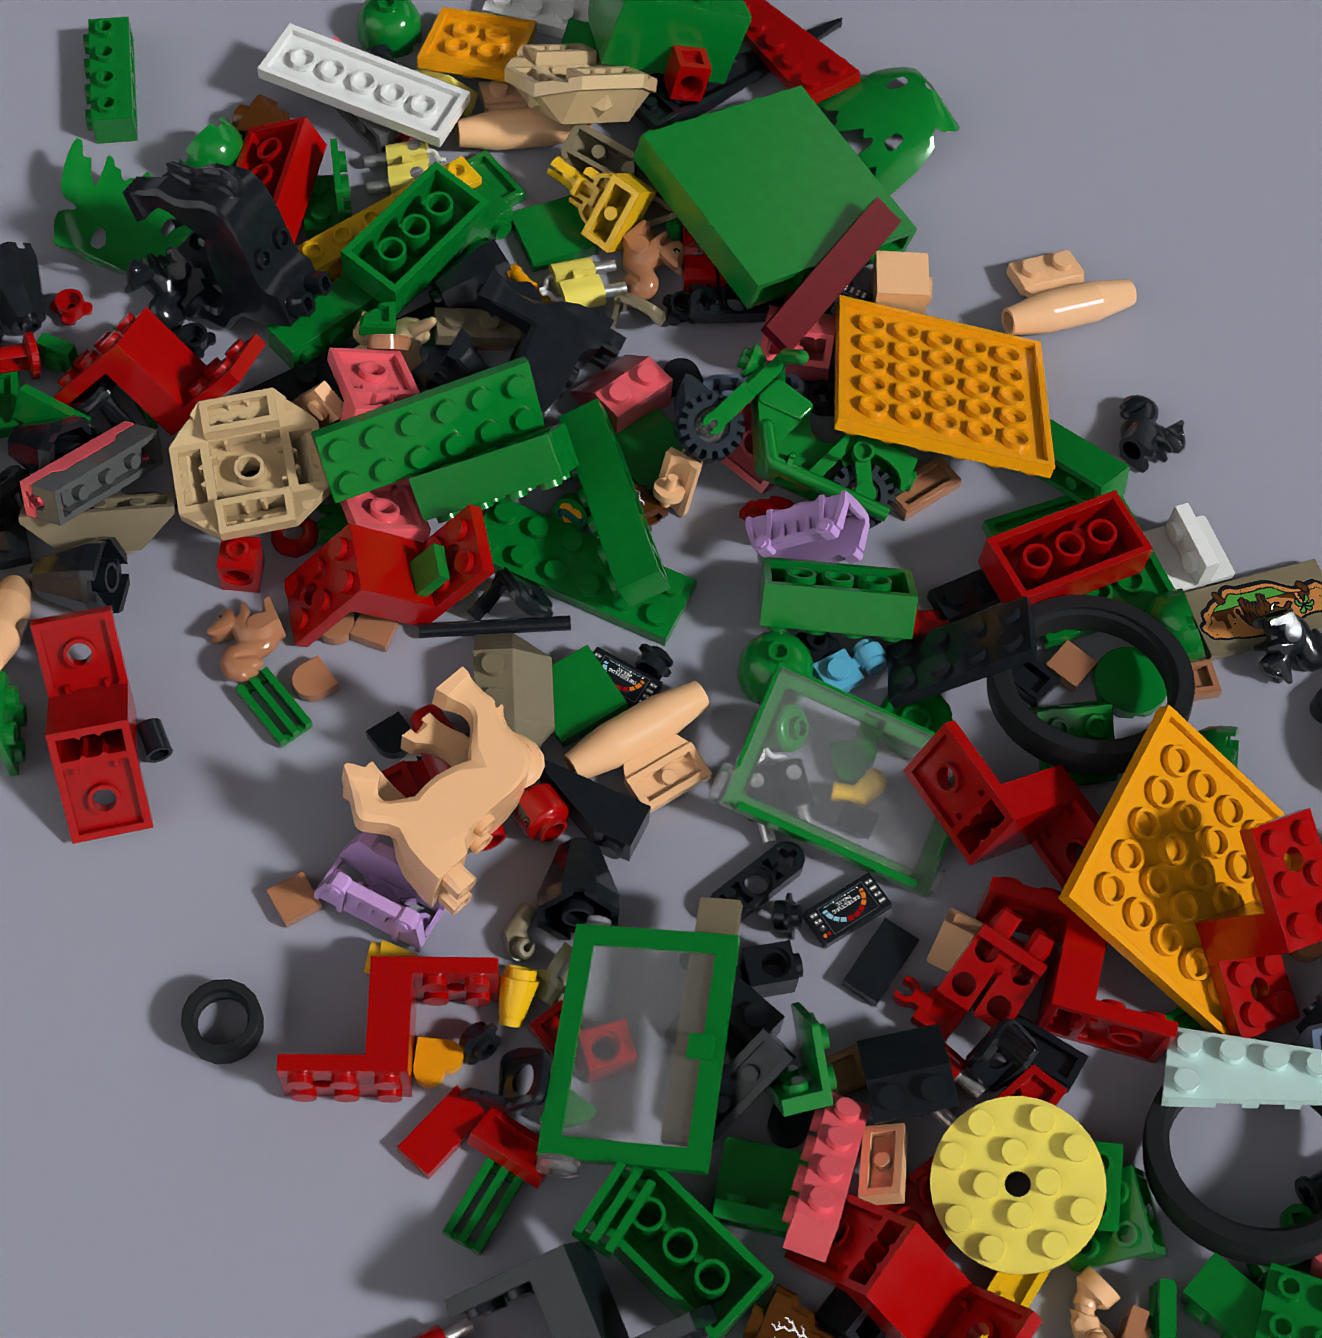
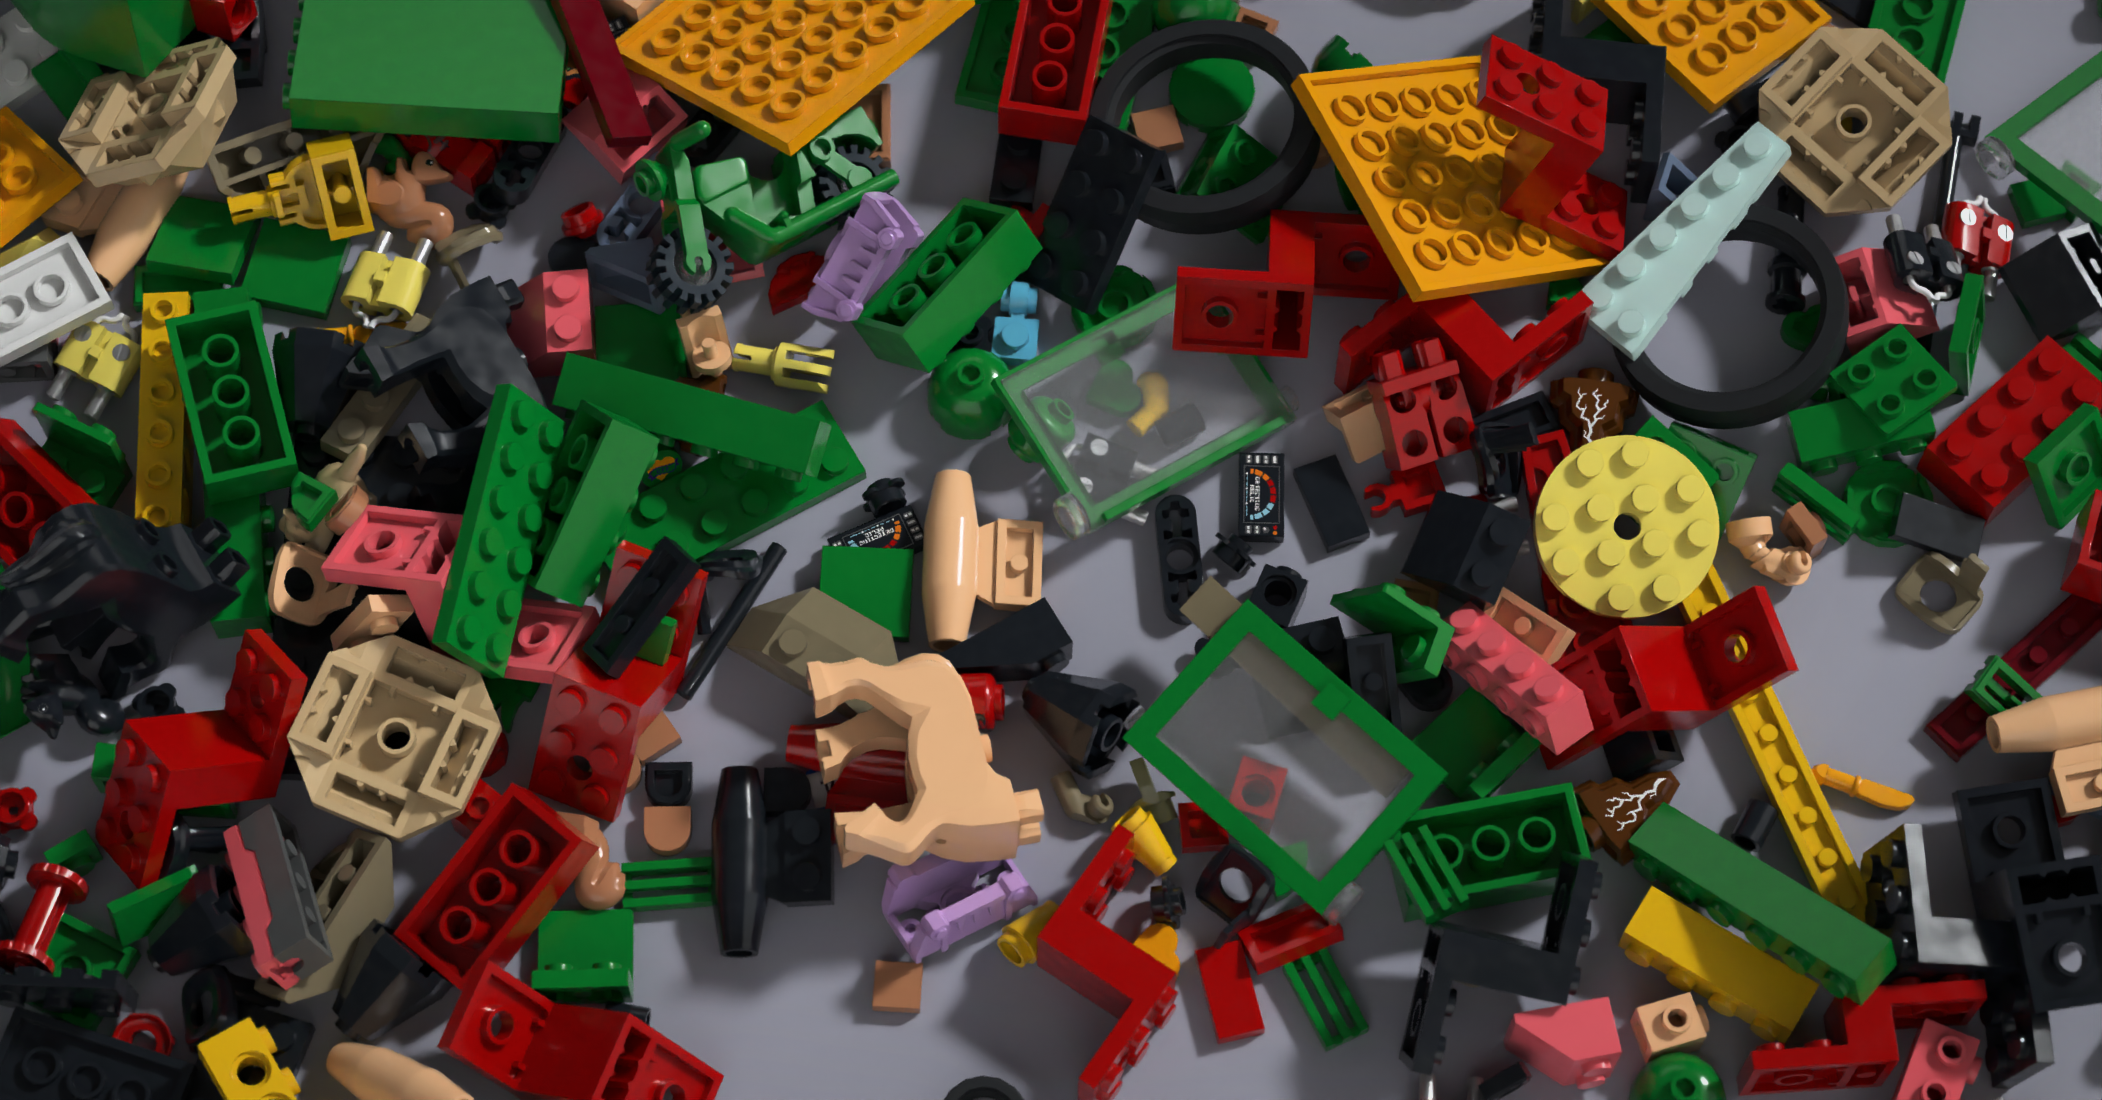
camera: 50 degrees left, 5 degrees up
(181, 686) = (586, 956): none -> green bracket
(187, 595) = (496, 886): none -> red brick
(303, 349) = (325, 597): none -> light nougat piece
(321, 747) = (761, 860): none -> black plate
(348, 662) = (669, 783): none -> black tile
(434, 544) = (641, 607): none -> black plate
(523, 172) = (201, 242): none -> green tile
(703, 540) = (779, 364): none -> light yellow arm
(711, 363) = (581, 220): none -> red plate
(1104, 1101) = (1592, 405): none -> reddish brown rock

